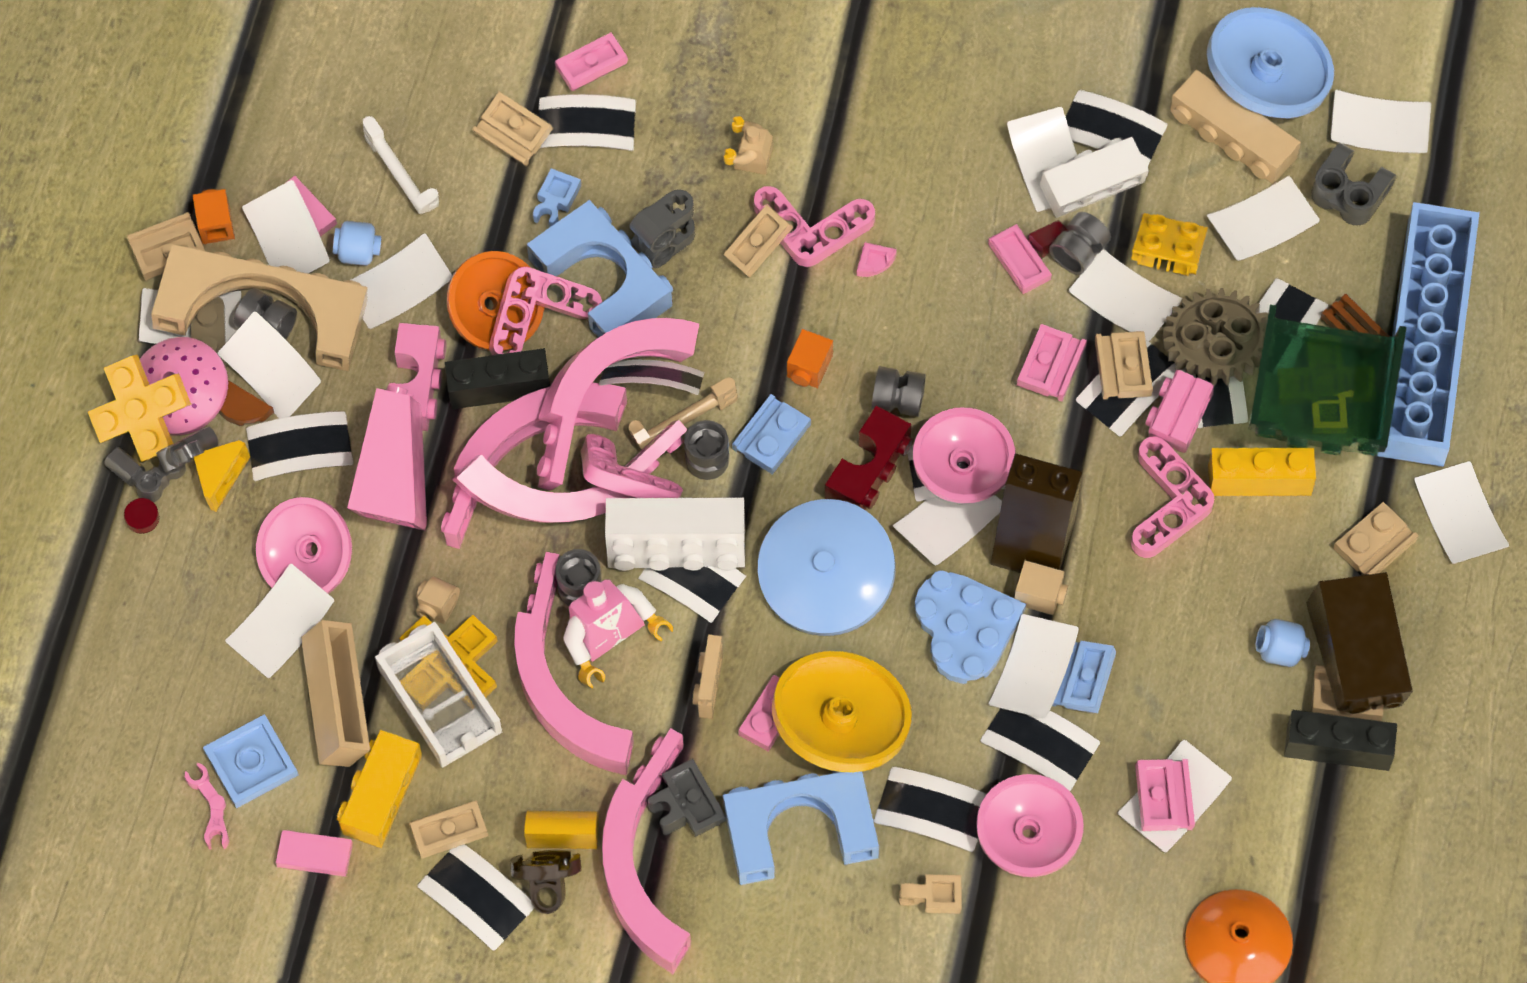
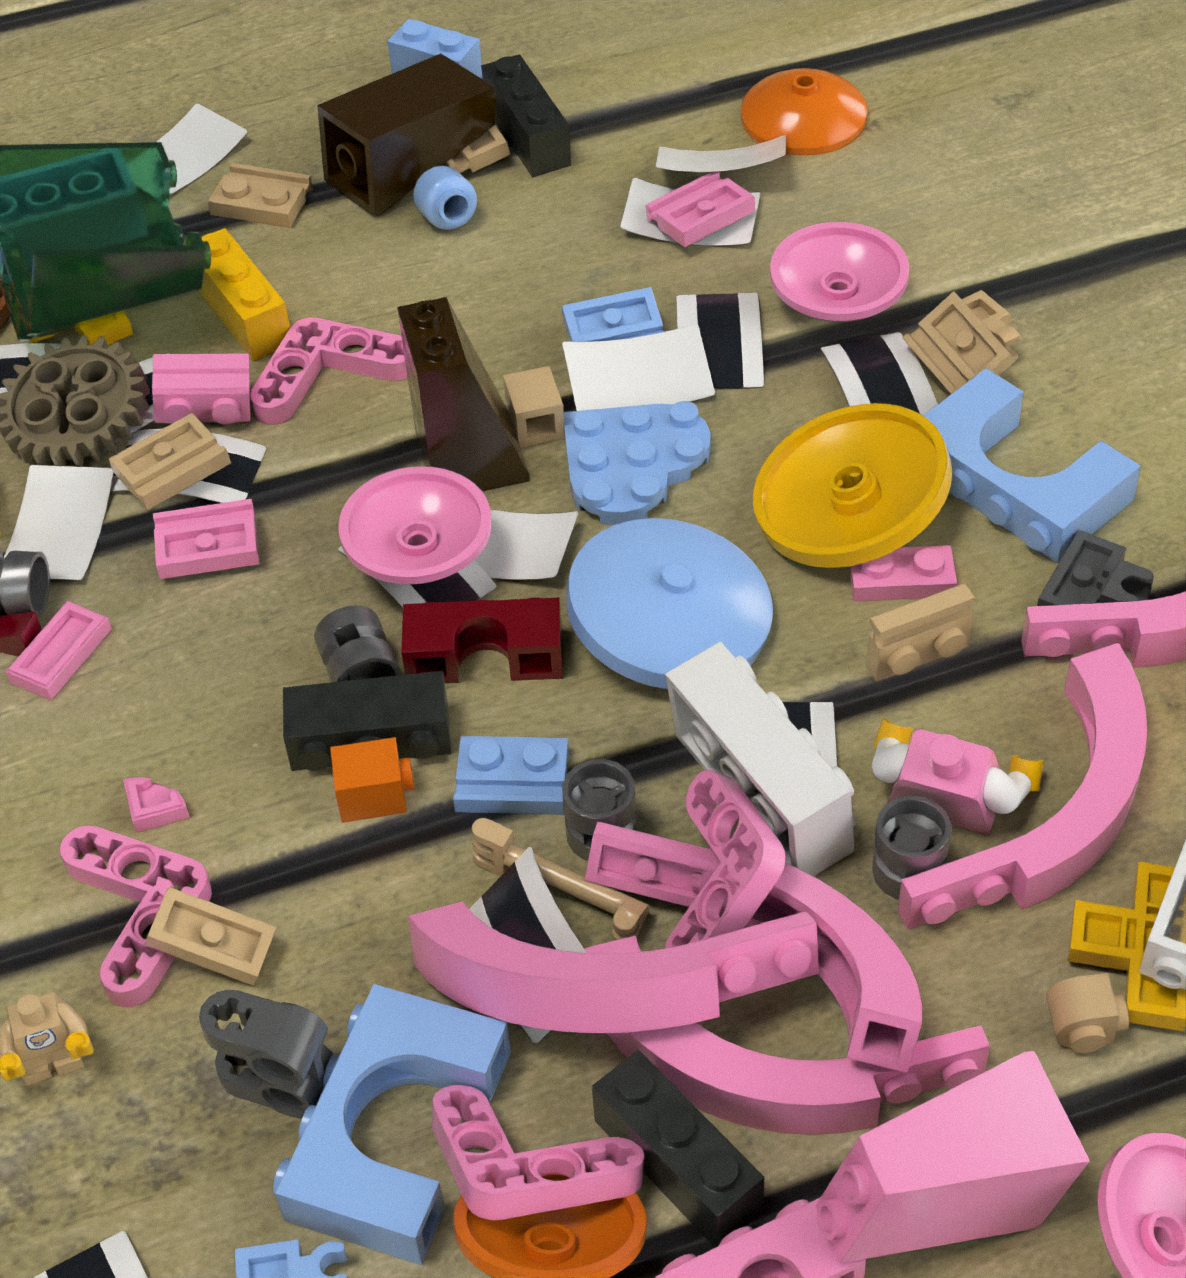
camera: 120 degrees left, 15 degrees down
(849, 376) = (363, 711): none -> pearl dark grey brick
(914, 853) = (957, 344): none -> tan plate
(1211, 840) = (721, 159): none -> white sticker
(1447, 716) = (419, 41): none -> light blue brick

